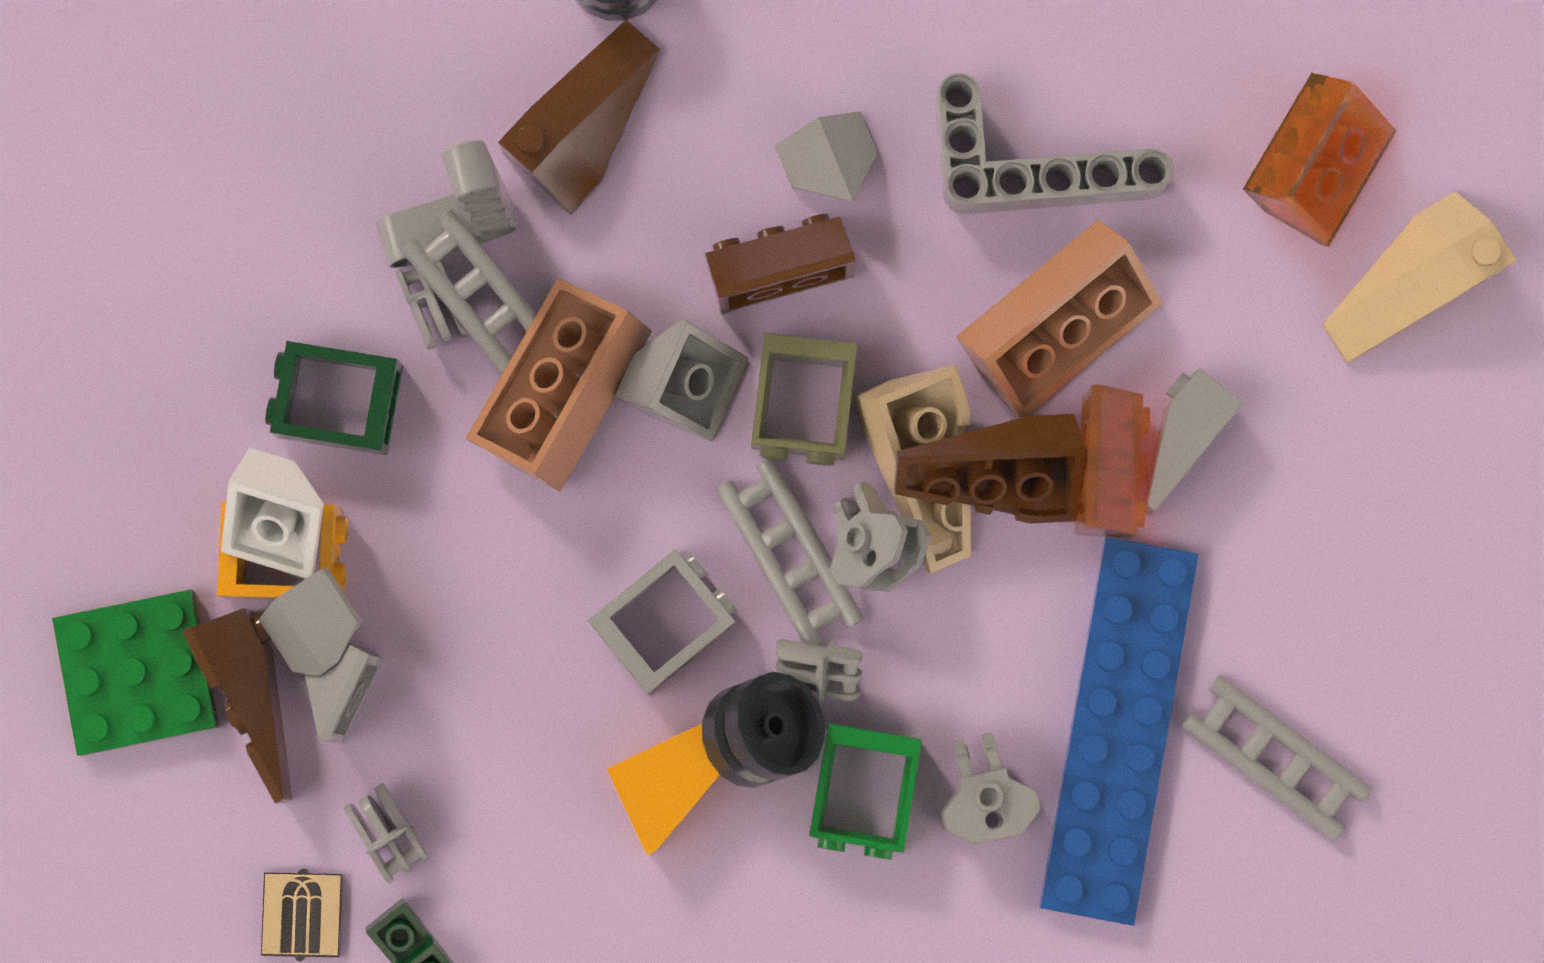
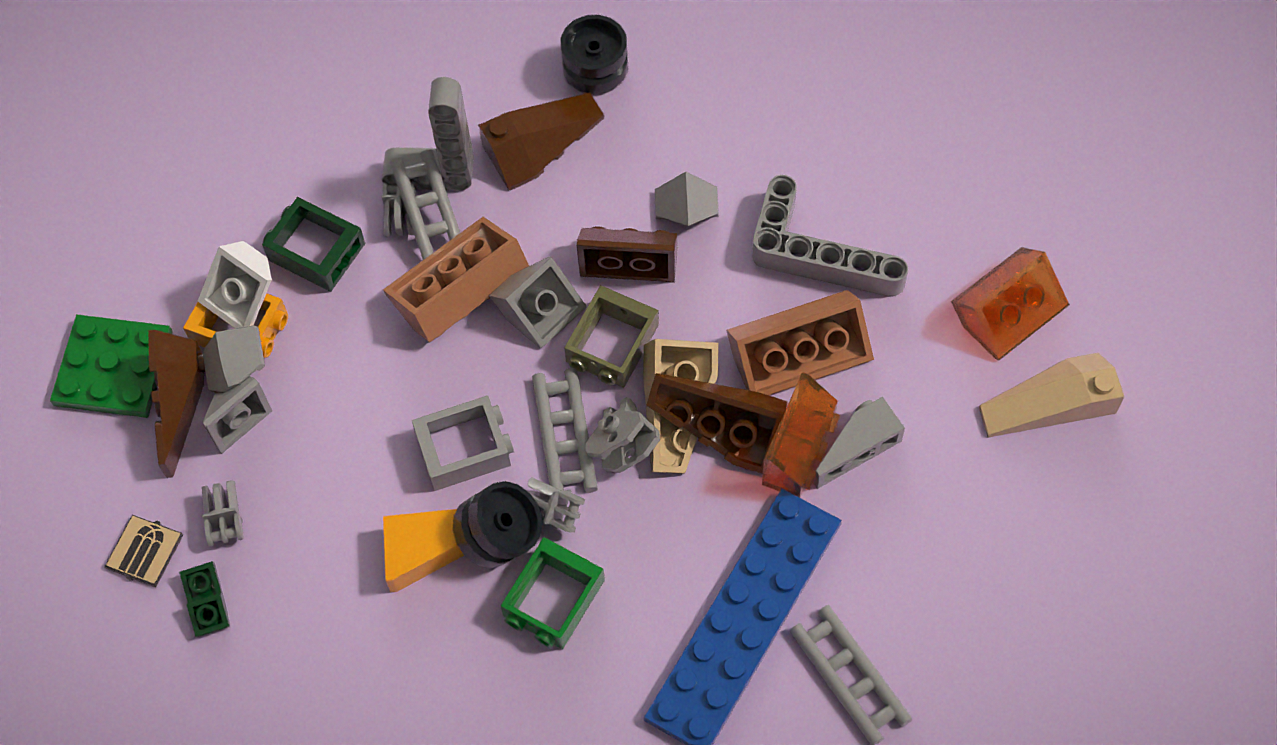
camera: 20 degrees right, 20 degrees down
(987, 793) = (636, 625): light grey hinge -> none

